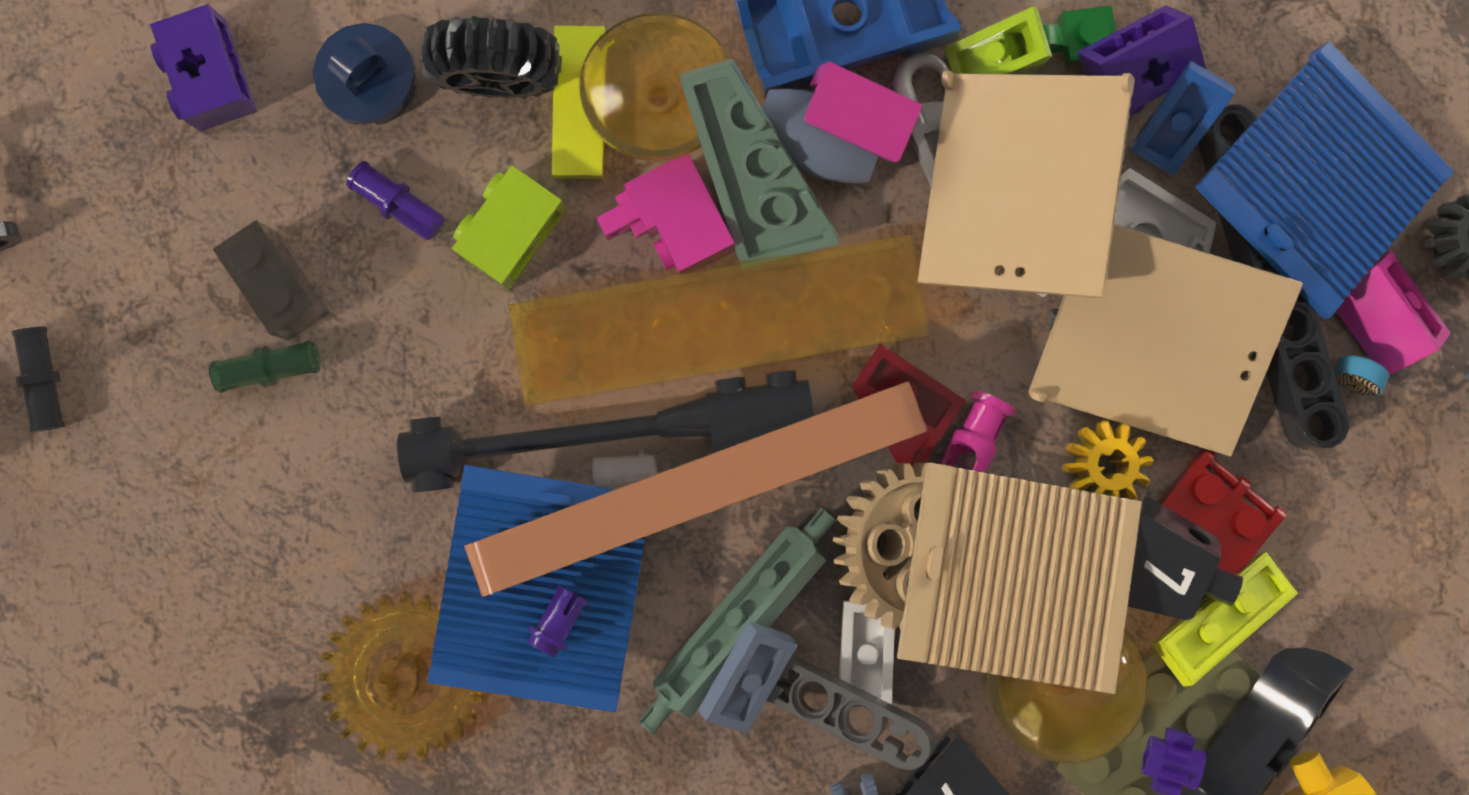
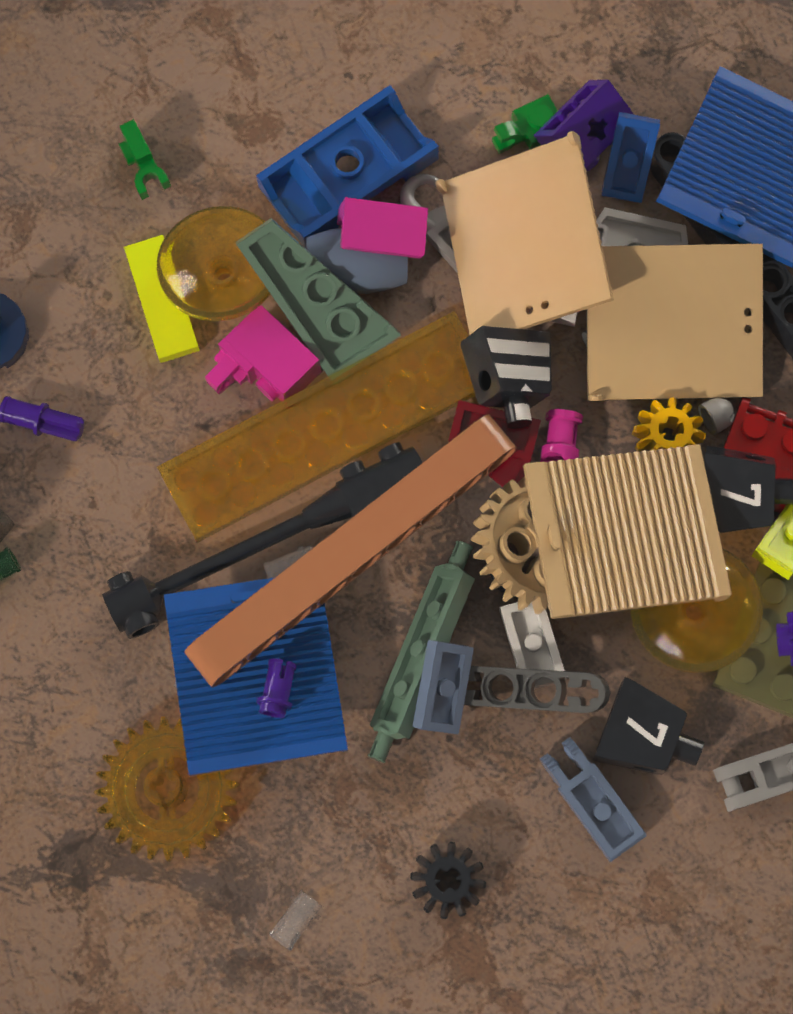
camera: 15 degrees left, 10 degrees down
(490, 57) = (84, 283): black gear -> none
(508, 226) = (137, 408): lime brick -> none
(951, 331) = (509, 370): none -> black torso
(1008, 47) = (477, 147): lime slope -> none
(1171, 459) = (716, 414): none -> light grey hinge

